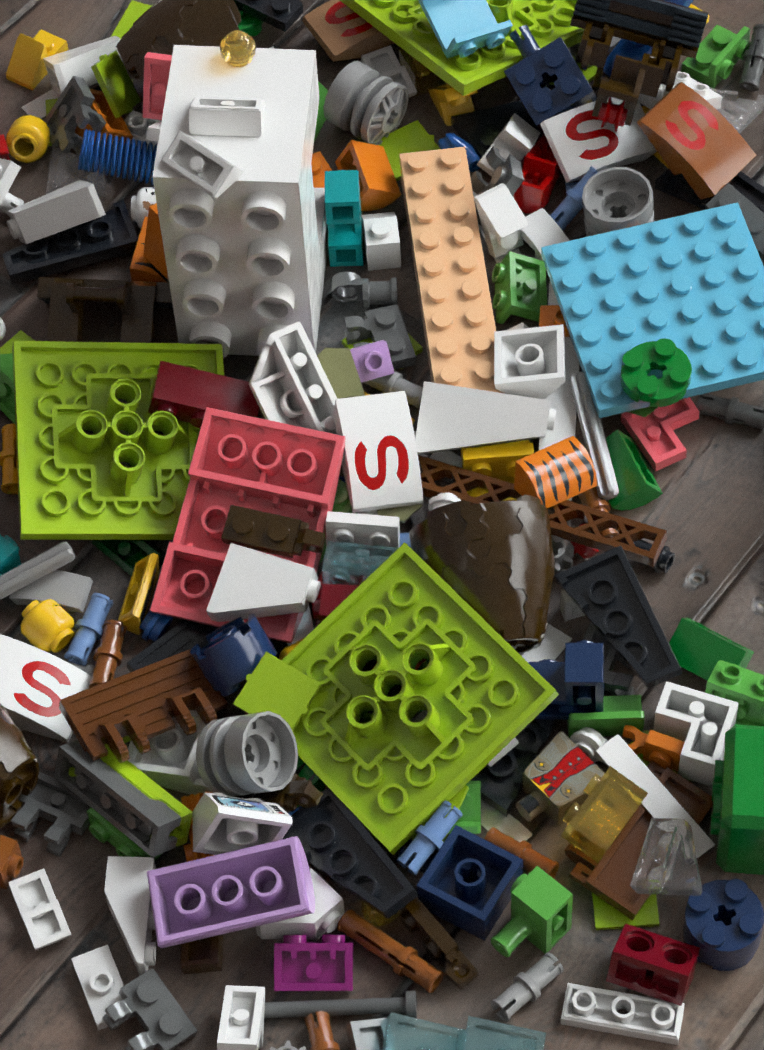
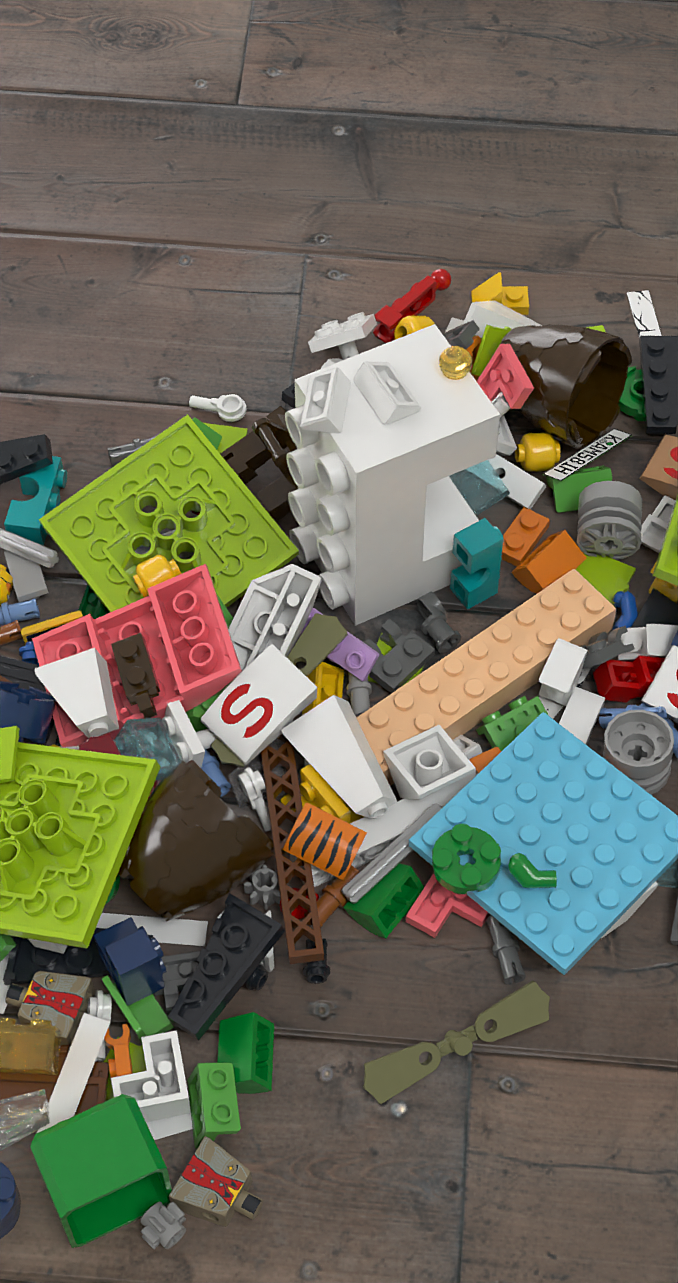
camera: 55 degrees right, 0 degrees up
(169, 467) = (154, 572): none -> yellow head
(189, 391) = (229, 557): dark red brick -> none
(381, 241) = (492, 602): white slope -> none
(702, 335) = (528, 875): none -> green arm

